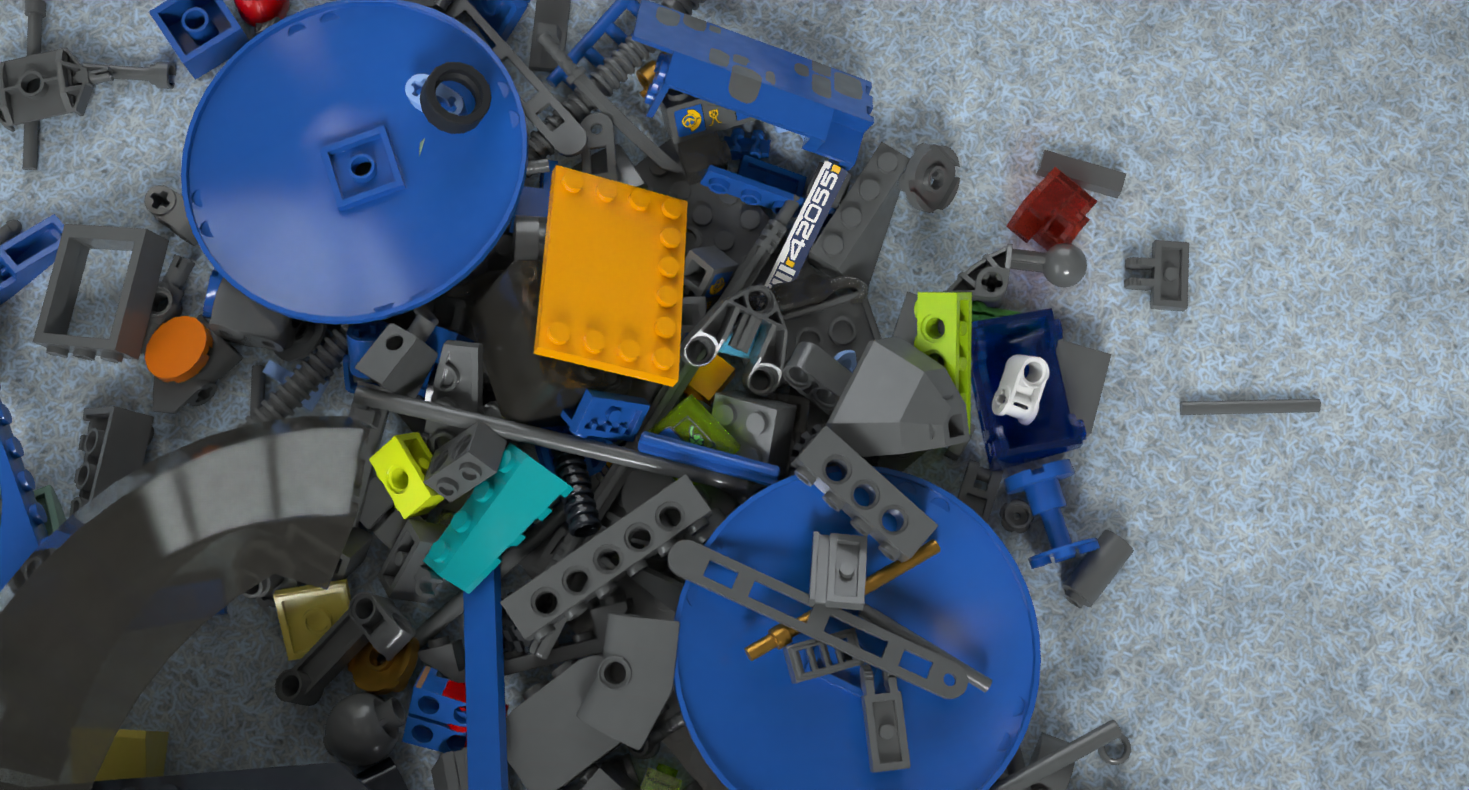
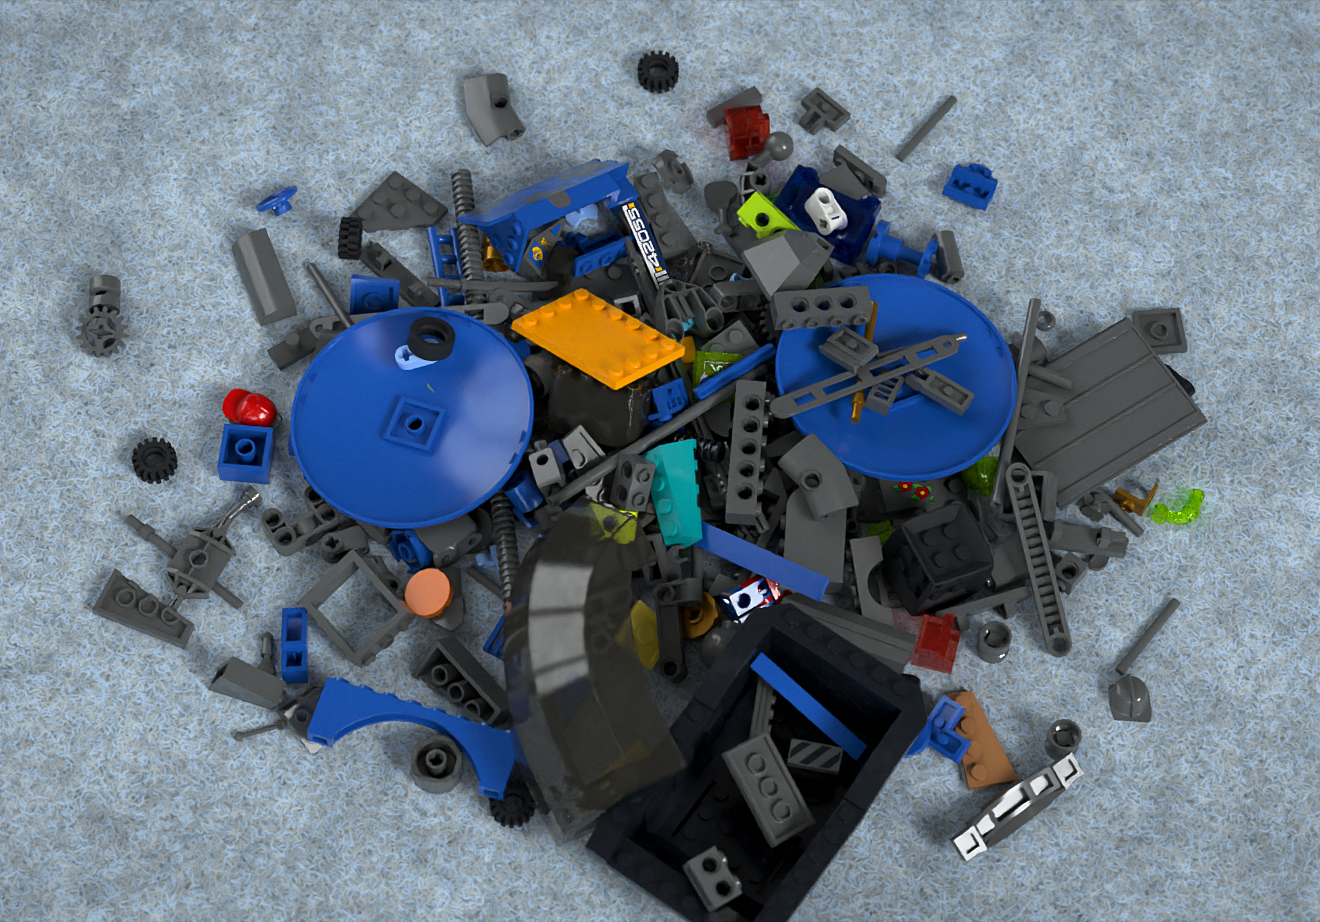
camera: 50 degrees left, 15 degrees down
(156, 157) = (302, 530): none -> dark grey beam
(948, 252) = (719, 197): none -> dark grey piece
(1050, 39) = (662, 61): none -> black tyre
(1120, 381) = (861, 171): none -> dark grey plate
(1218, 520) = (971, 185): none -> blue slope

